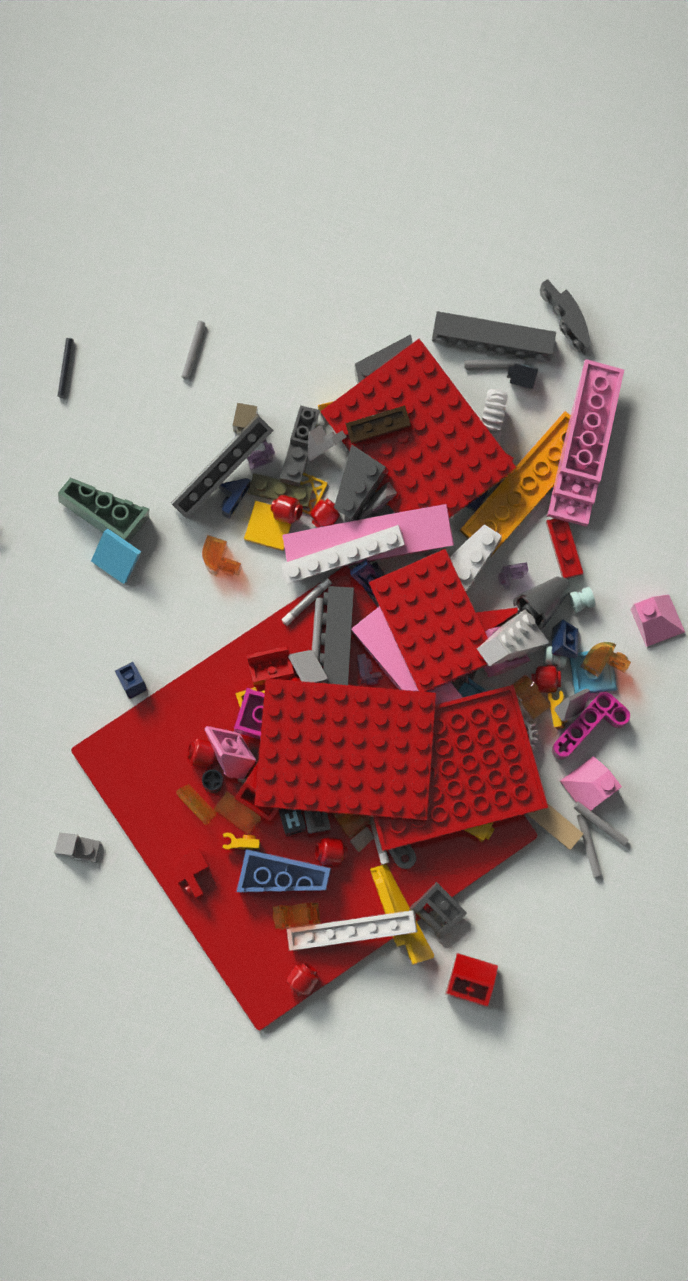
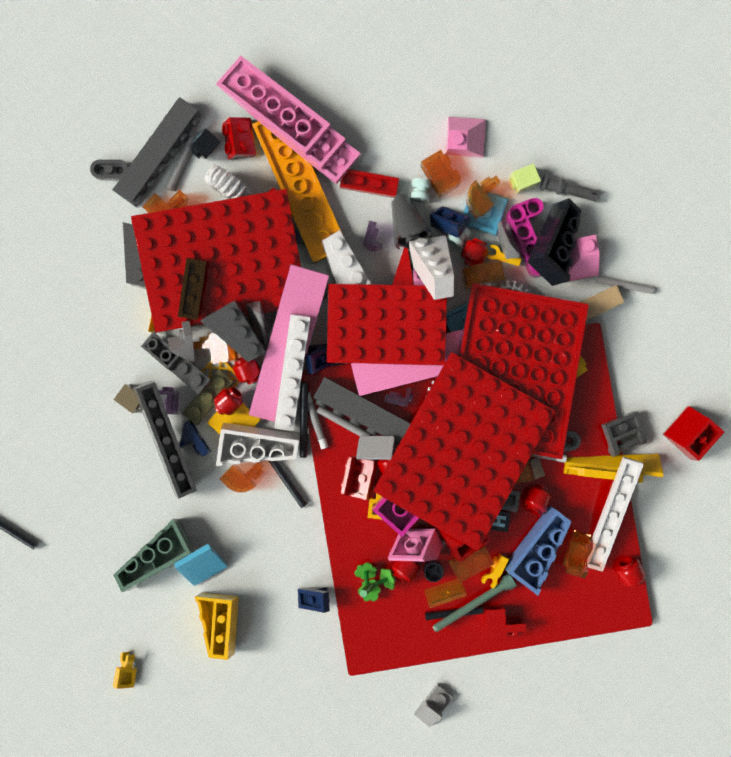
camera: 60 degrees left, 10 degrees up
(66, 600) = (219, 623): none -> yellow wedge
(166, 729) = (370, 588): none -> bright green plant
(179, 822) = (442, 614): none -> black bar
(193, 350) = (47, 414): light grey bar -> none
(232, 860) = (506, 583): none -> sand green piece
(233, 604) = (288, 483): none -> black bar
(256, 553) = (255, 444): none -> white wedge
(302, 589) = (303, 419): none -> black bar
(331, 478) = (219, 349): none -> clear orange brick
(444, 359) = (156, 204): none -> clear orange brick
(457, 301) = (110, 169): none -> dark grey plate
(546, 405) = (238, 137): none -> red bracket
(572, 321) = (175, 78): dark grey slope -> none
(590, 750) = (555, 243): none -> black wedge
(600, 823) = (613, 266): light grey bar -> none
(607, 611) = (440, 173): none -> clear orange brick
(643, 695) = (524, 179): none -> yellowish green brick
(655, 735) = (561, 186): none -> dark grey pin

